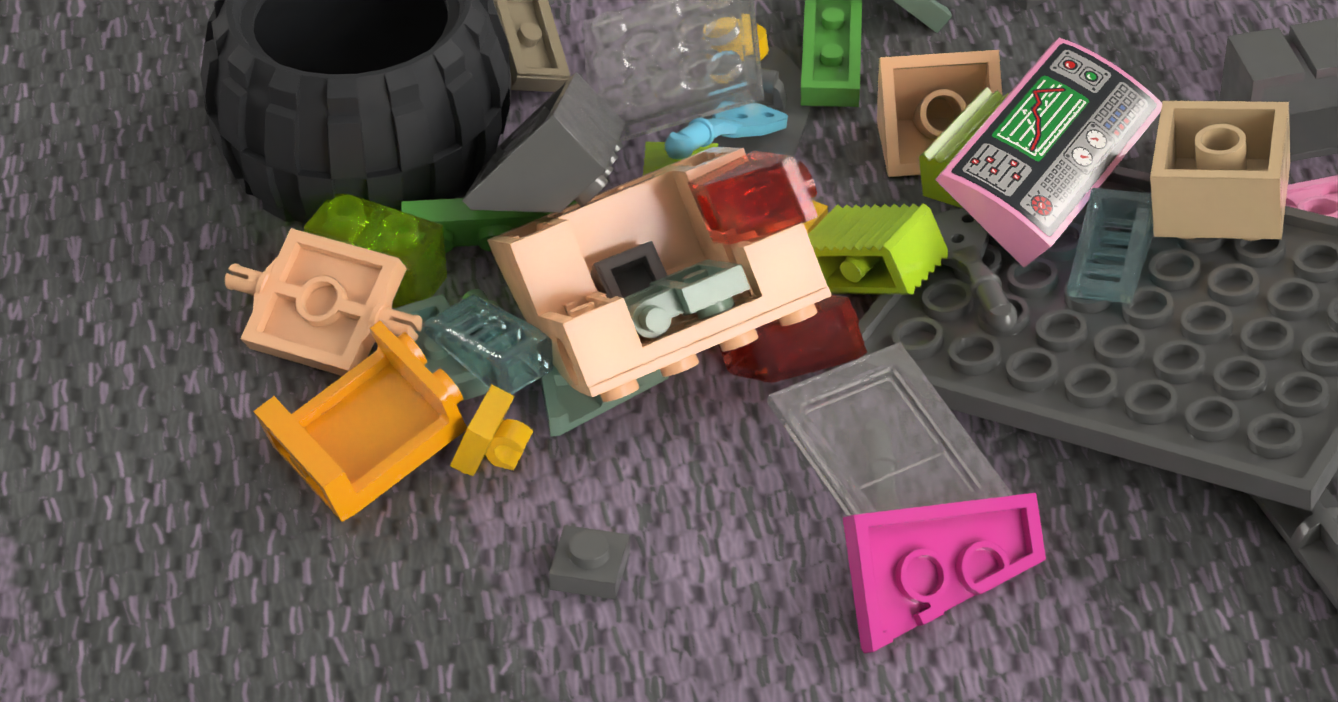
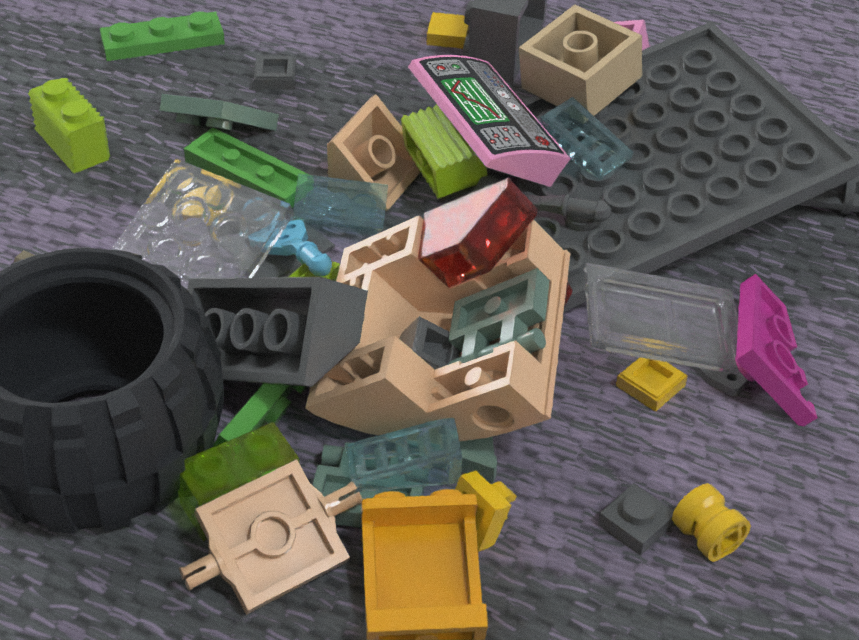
camera: 60 degrees left, 0 degrees up
(611, 620) = (713, 525): none -> yellow wheel
(804, 499) = (651, 382): none -> yellow tile
(840, 130) = (340, 202): none -> clear light blue plate

